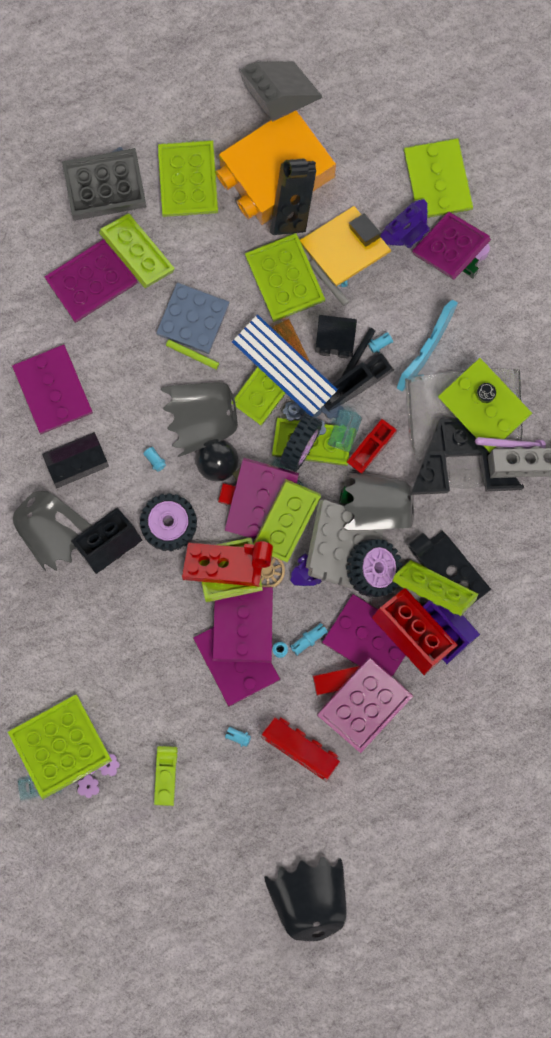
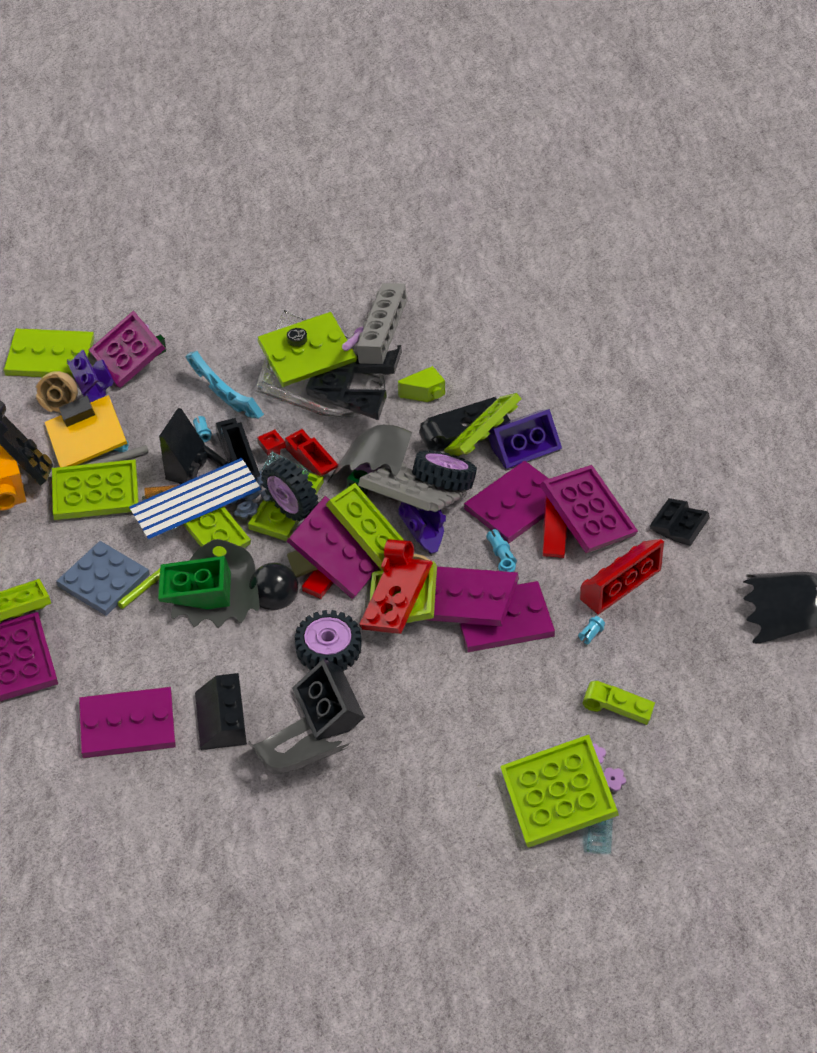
camera: 75 degrees left, 30 degrees down
(153, 457) = (250, 641): medium azure pin -> none
(196, 396) = (196, 583): none -> green slope
(375, 408) = (271, 442): none -> red tile
(383, 204) = (56, 390): none -> tan cylinder
(383, 787) = (679, 521): none -> black slope
(414, 631) = (523, 454): red slope -> none
(485, 521) = (422, 386): none -> lime slope

